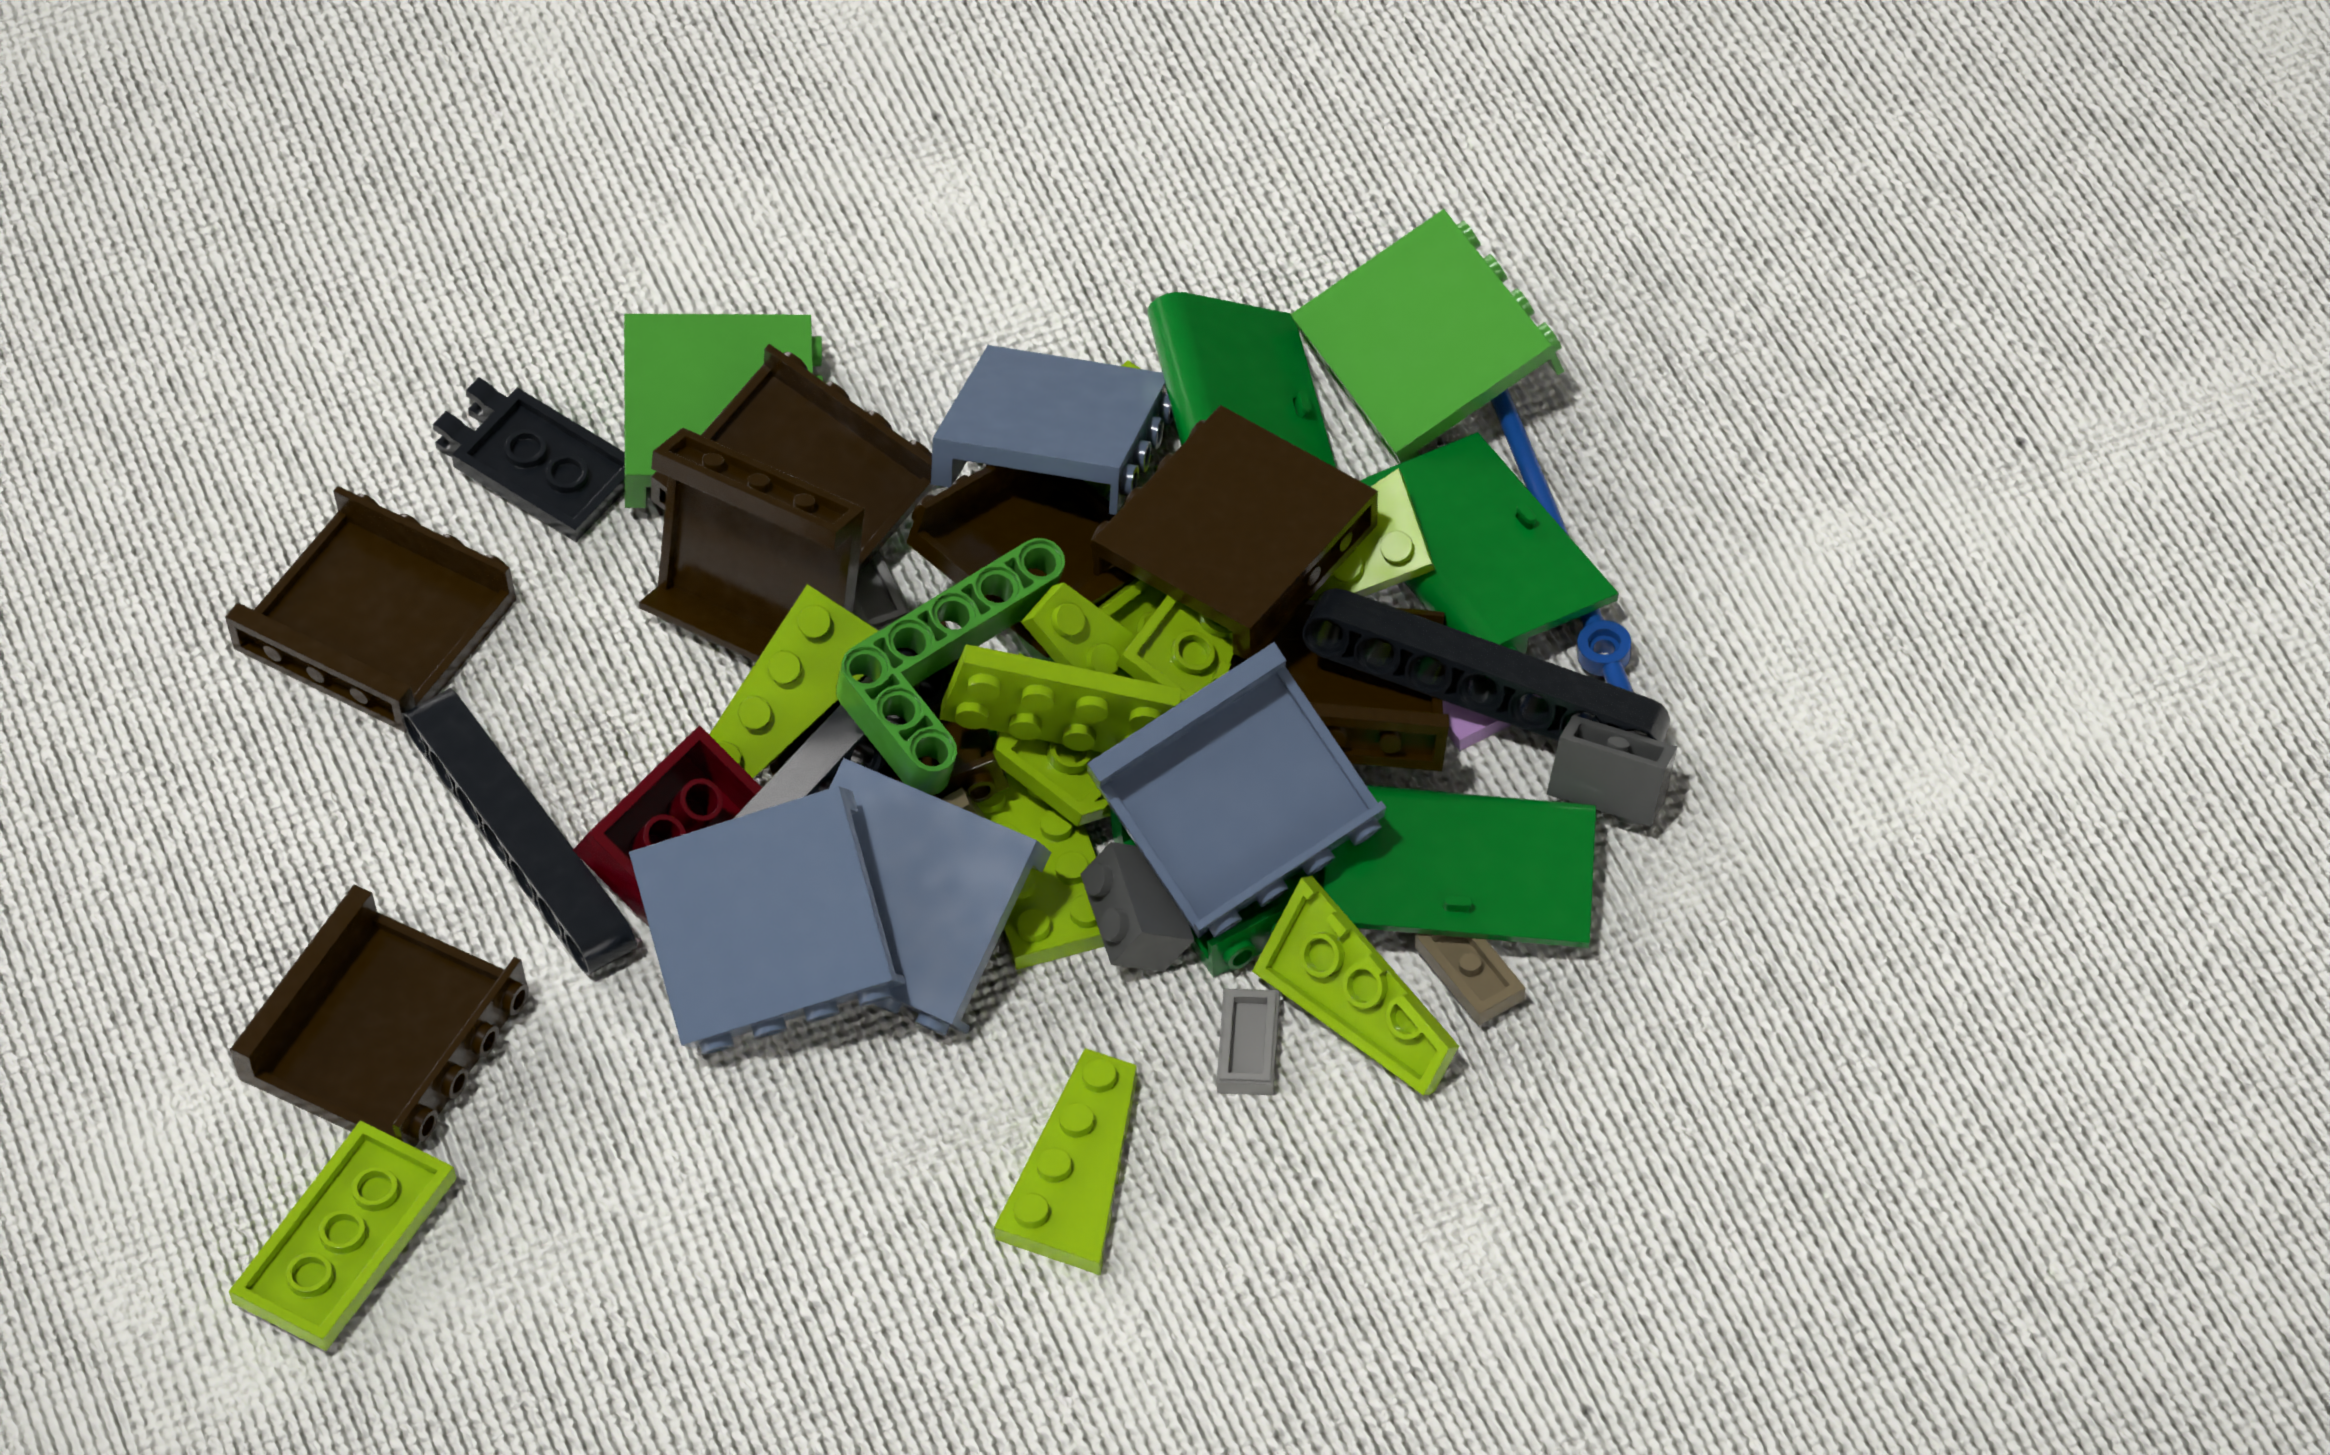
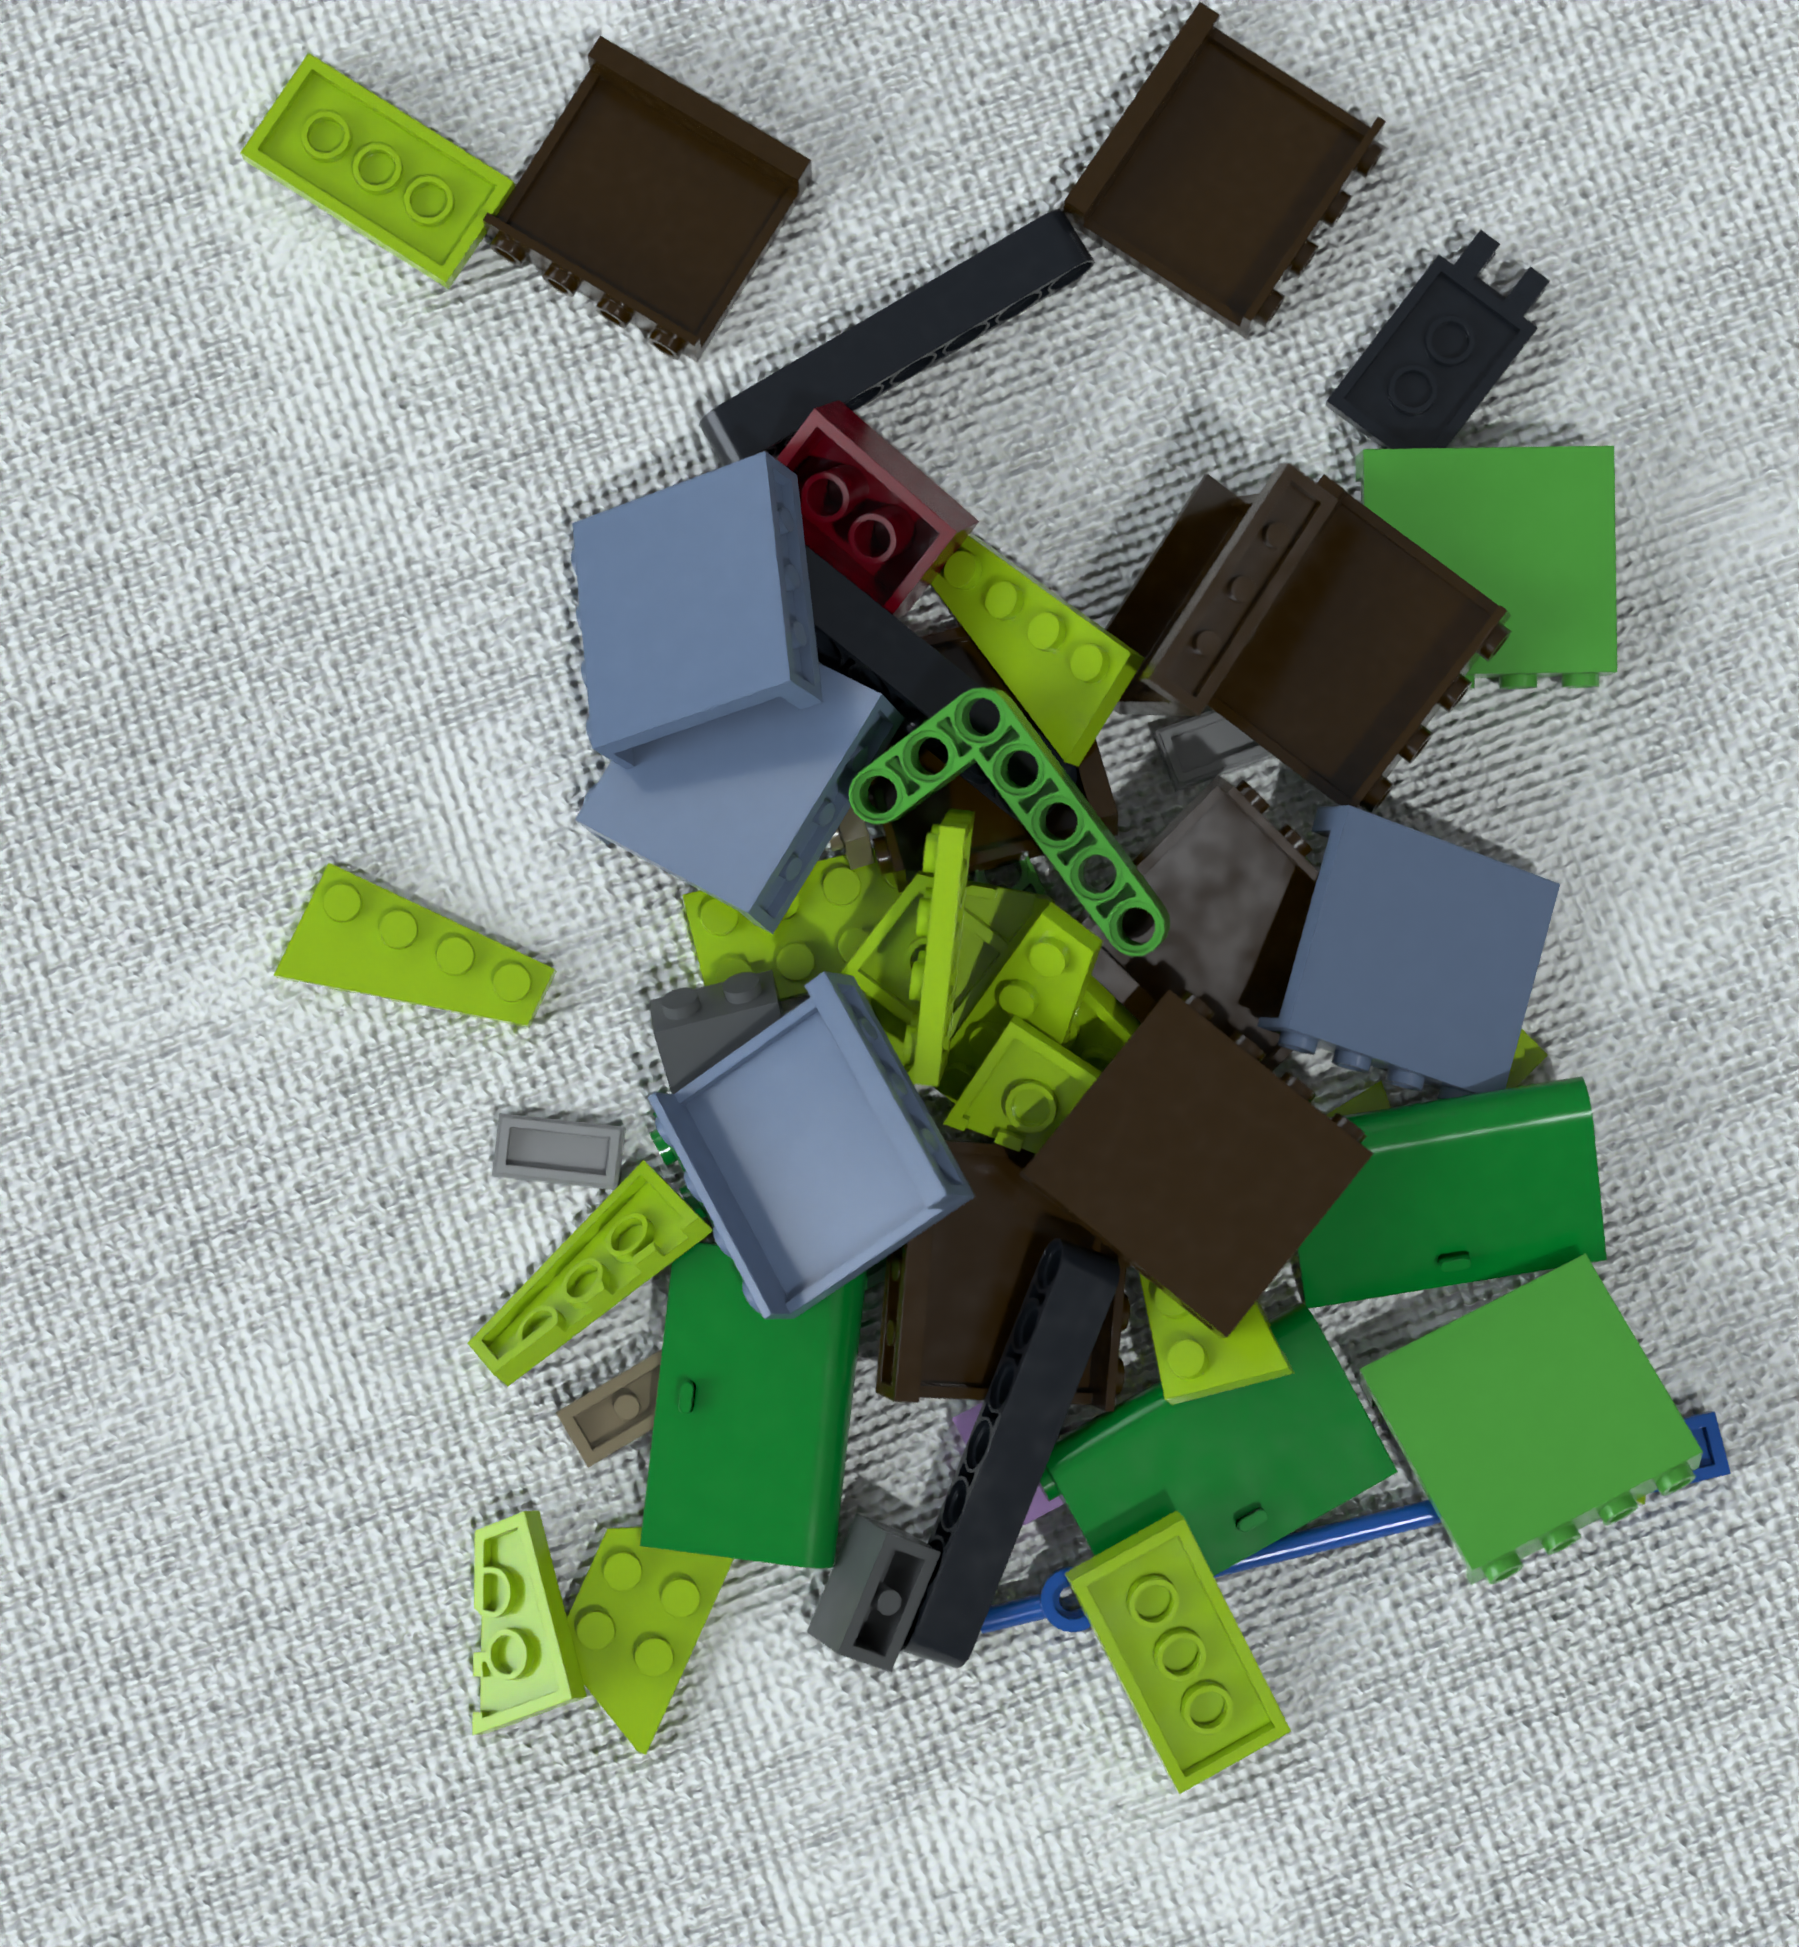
camera: 85 degrees right, 30 degrees up
(1638, 557) = (1178, 1651): none -> lime plate
(1659, 954) = (640, 1625): none -> lime wing
(1671, 1029) = (525, 1634): none -> lime wing

